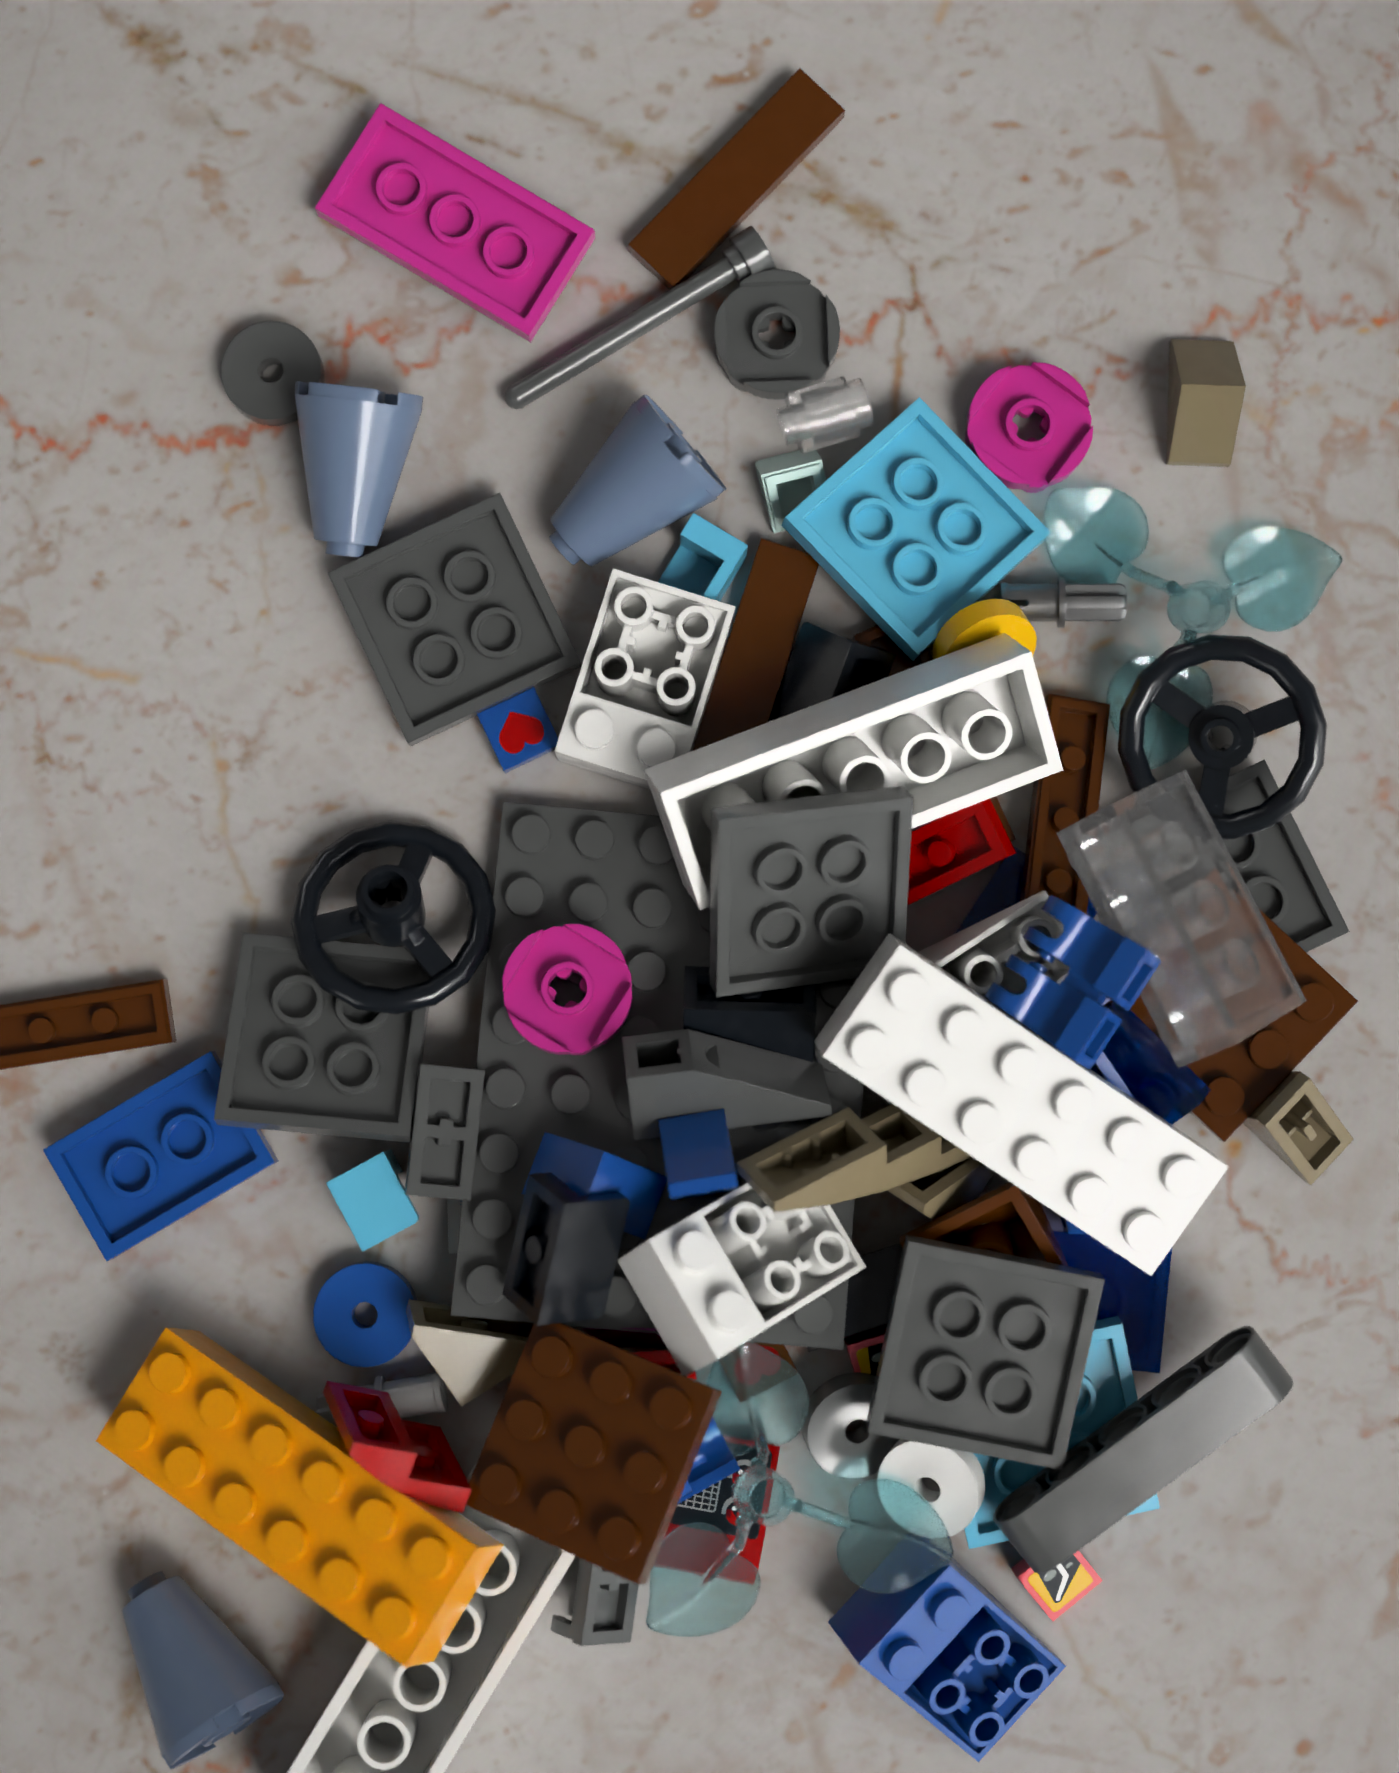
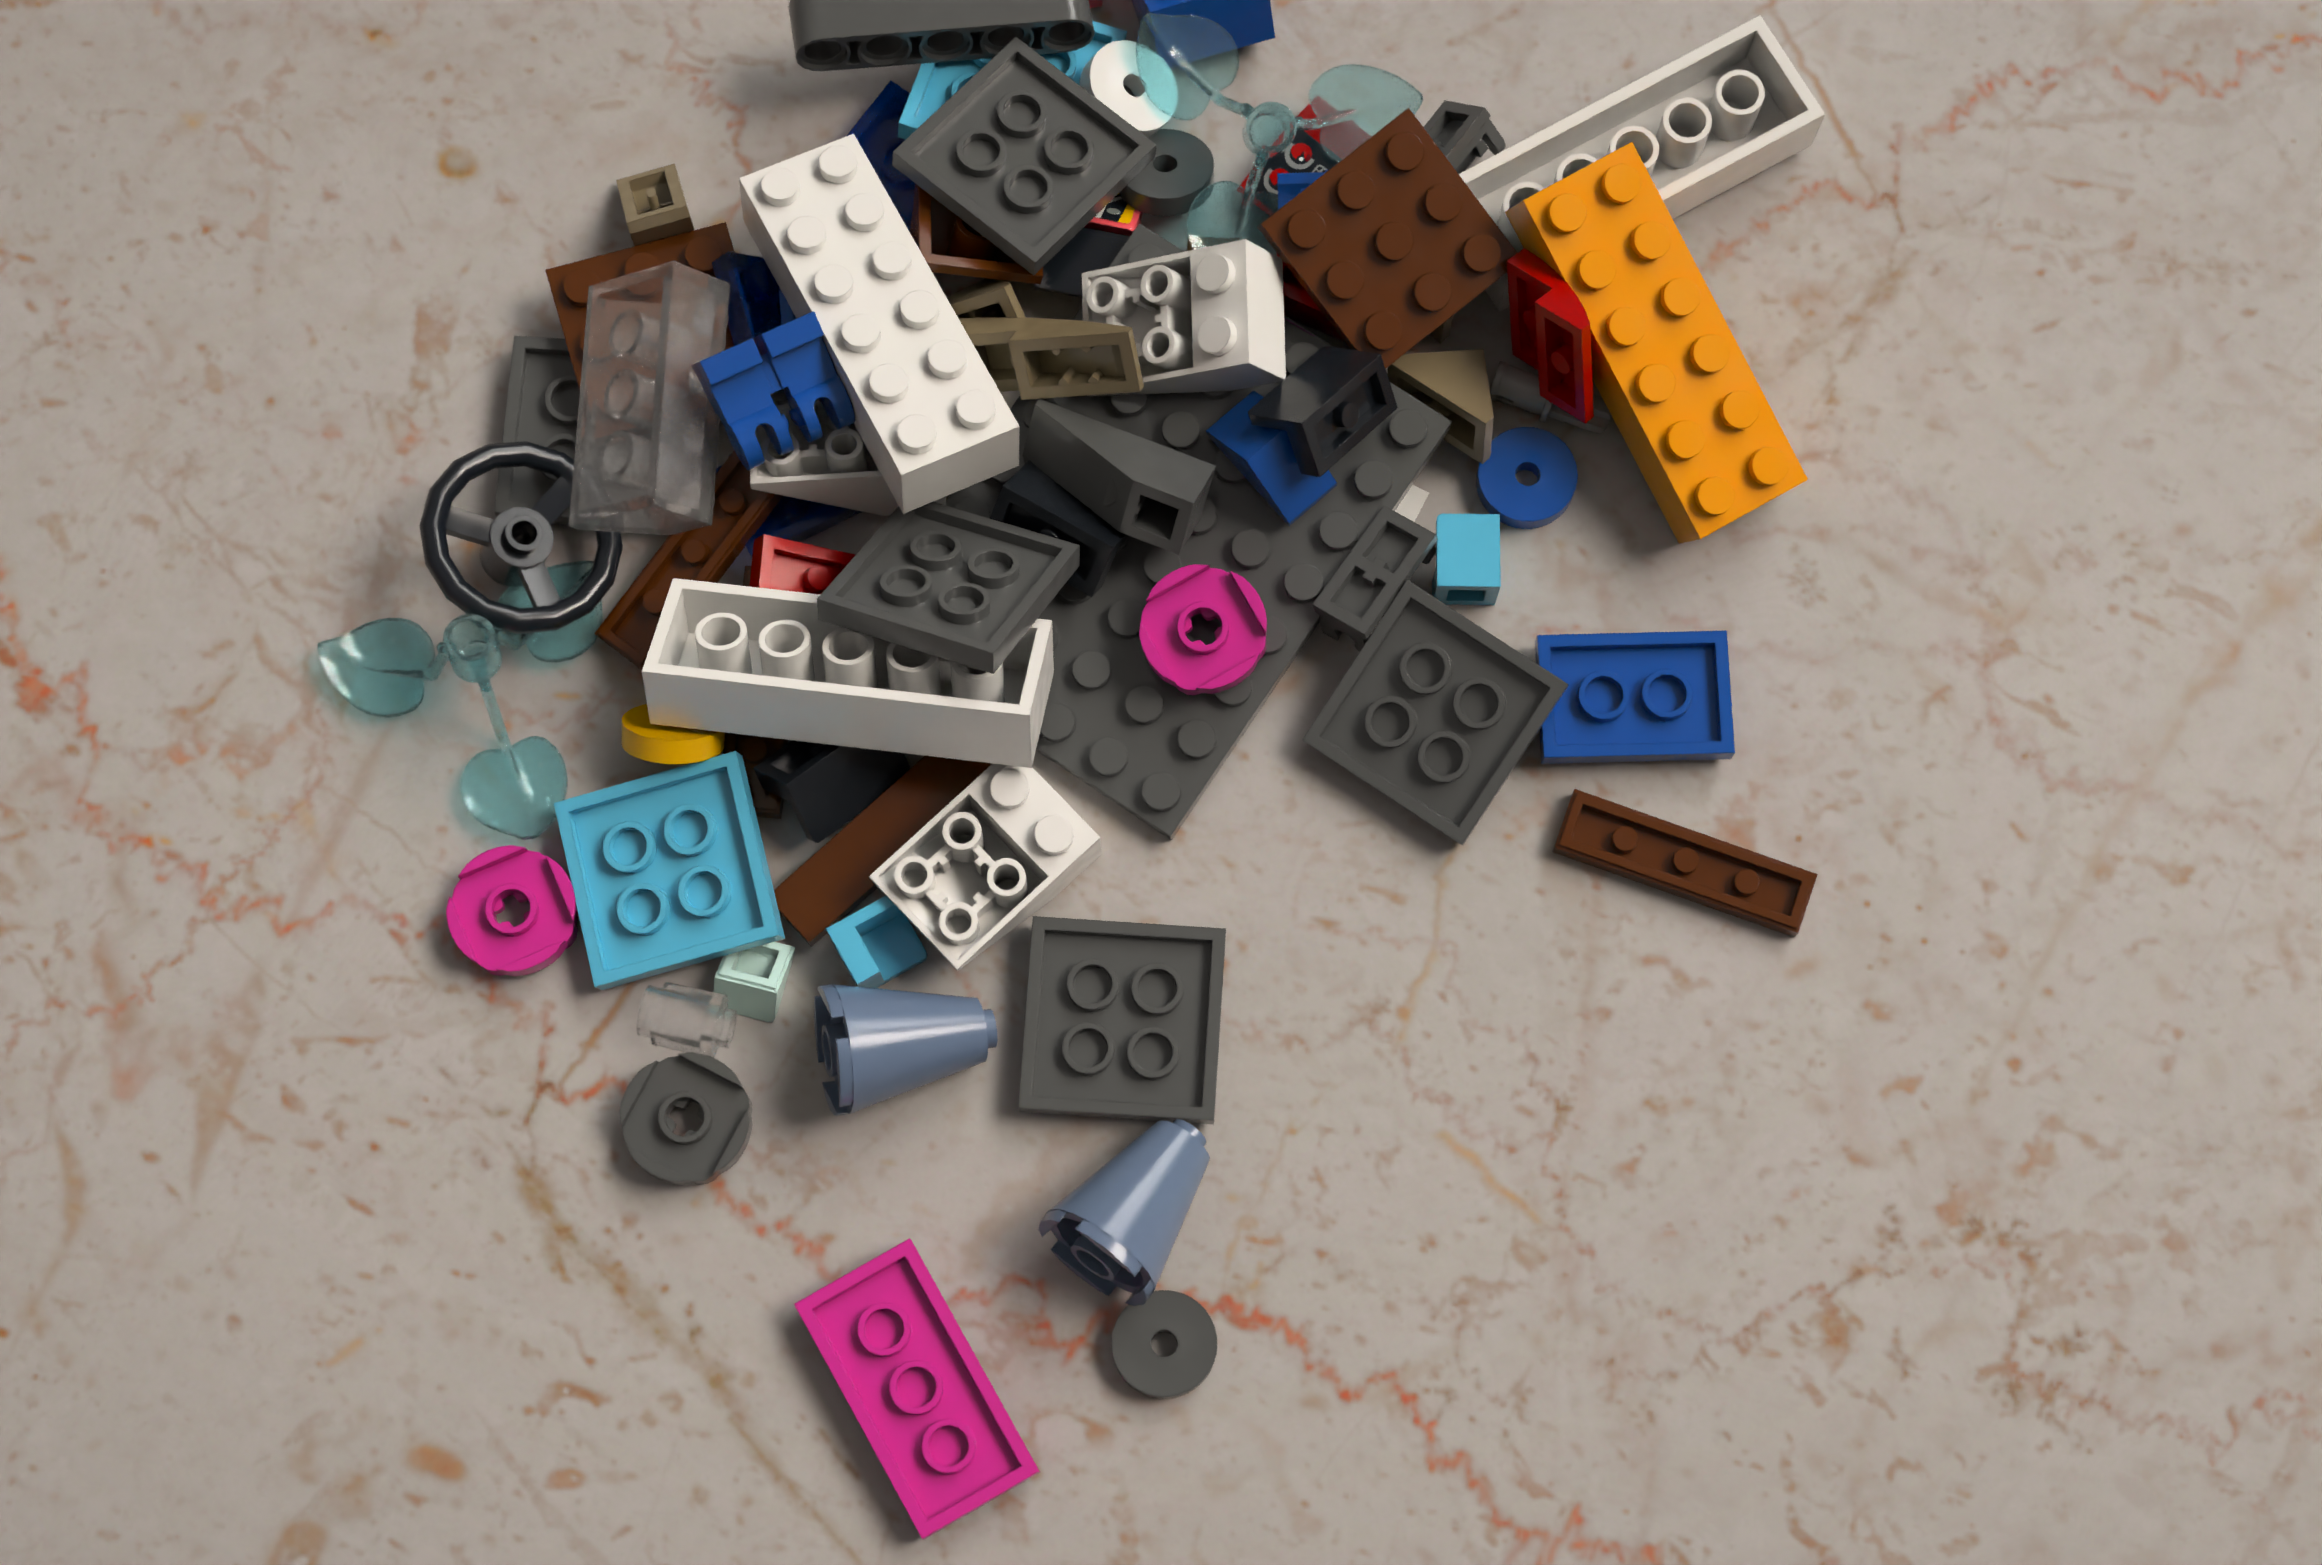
camera: 150 degrees left, 10 degrees down
(192, 1669) = (1820, 265): sand blue cone -> none
(392, 915) = (1262, 840): black piece -> none
(519, 730) = (1120, 891): blue tile -> none
(697, 1154) = (1171, 412): blue slope -> none
(736, 180) = (635, 1287): reddish brown tile -> none
(741, 259) = (676, 1204): dark grey piece -> none
(1069, 601) = (579, 740): flat silver axle -> none
(1203, 402) = (345, 852): dark tan slope -> none

